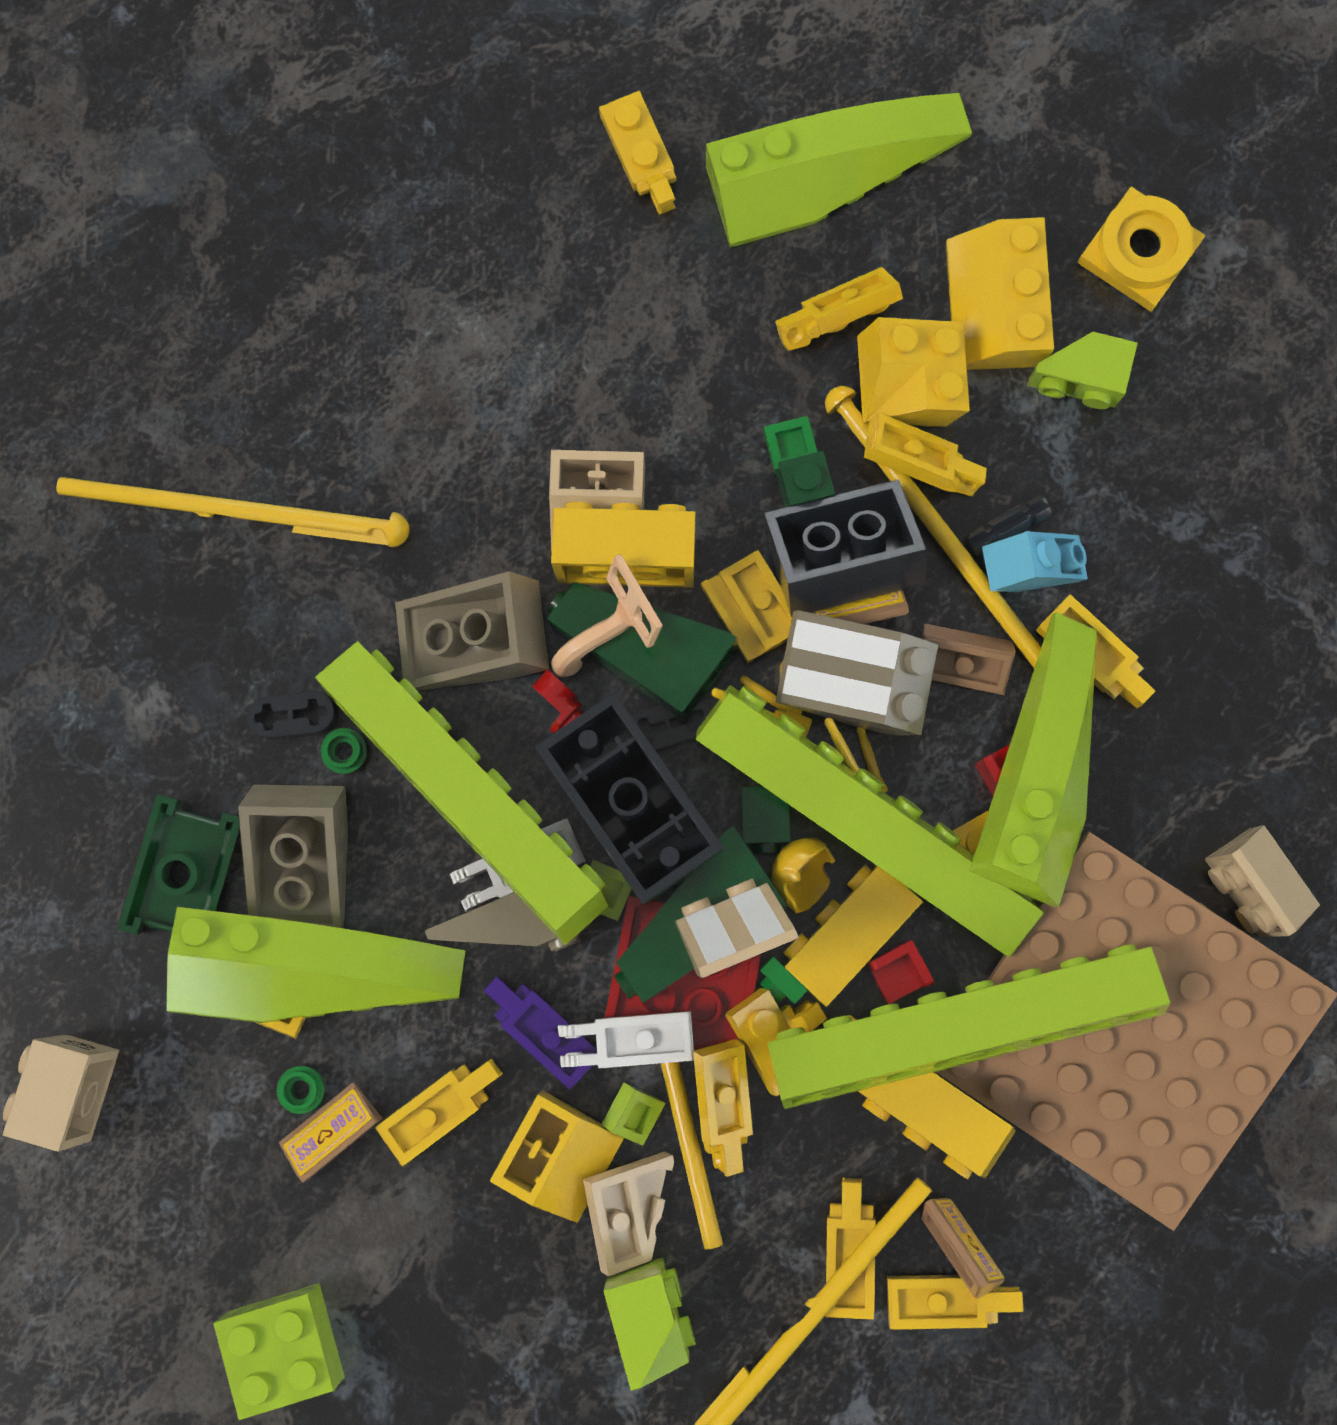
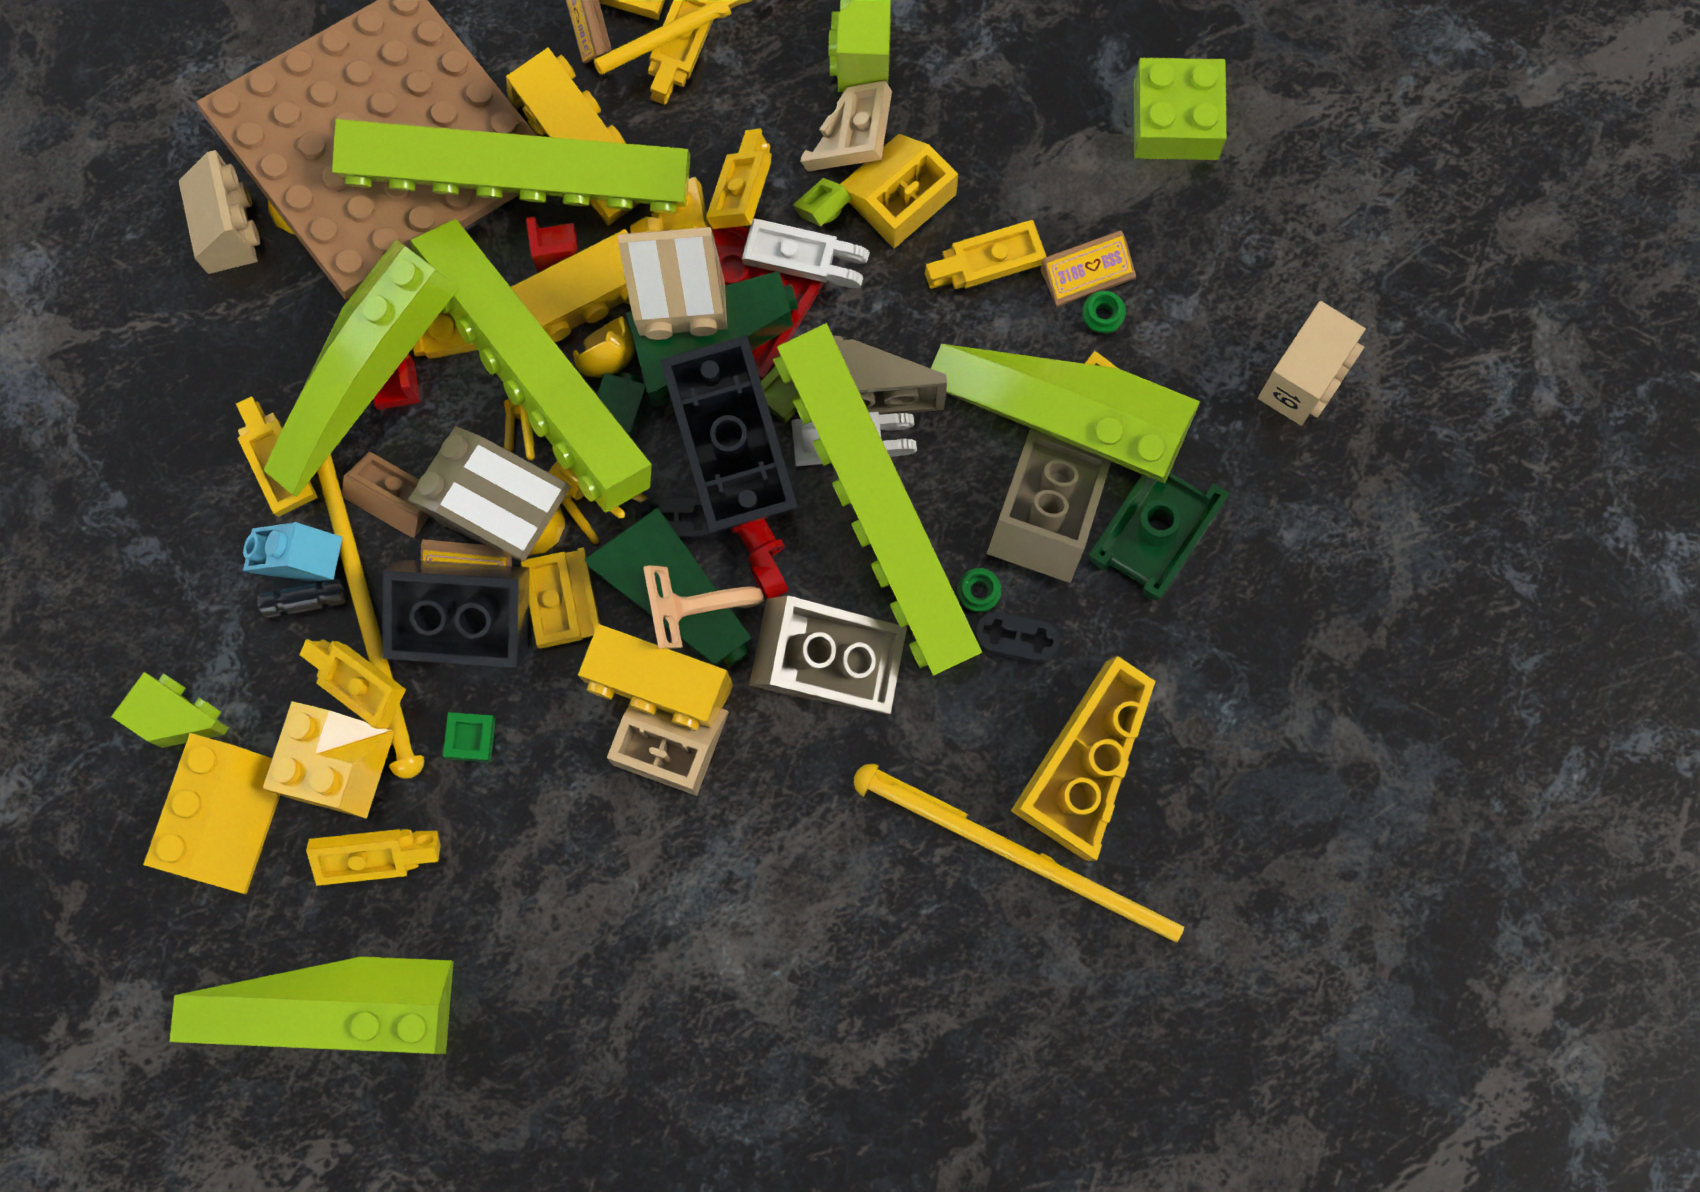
camera: 165 degrees left, 5 degrees down
(185, 611) = (1081, 773): none -> yellow wedge
(535, 1027) = (882, 298): dark purple hinge -> none
(640, 149) = (502, 1090): yellow hinge -> none
(692, 1155) = (785, 152): yellow bar -> none
(804, 479) = (470, 689): dark green brick -> none
(1136, 276) = (95, 827): yellow piece -> none

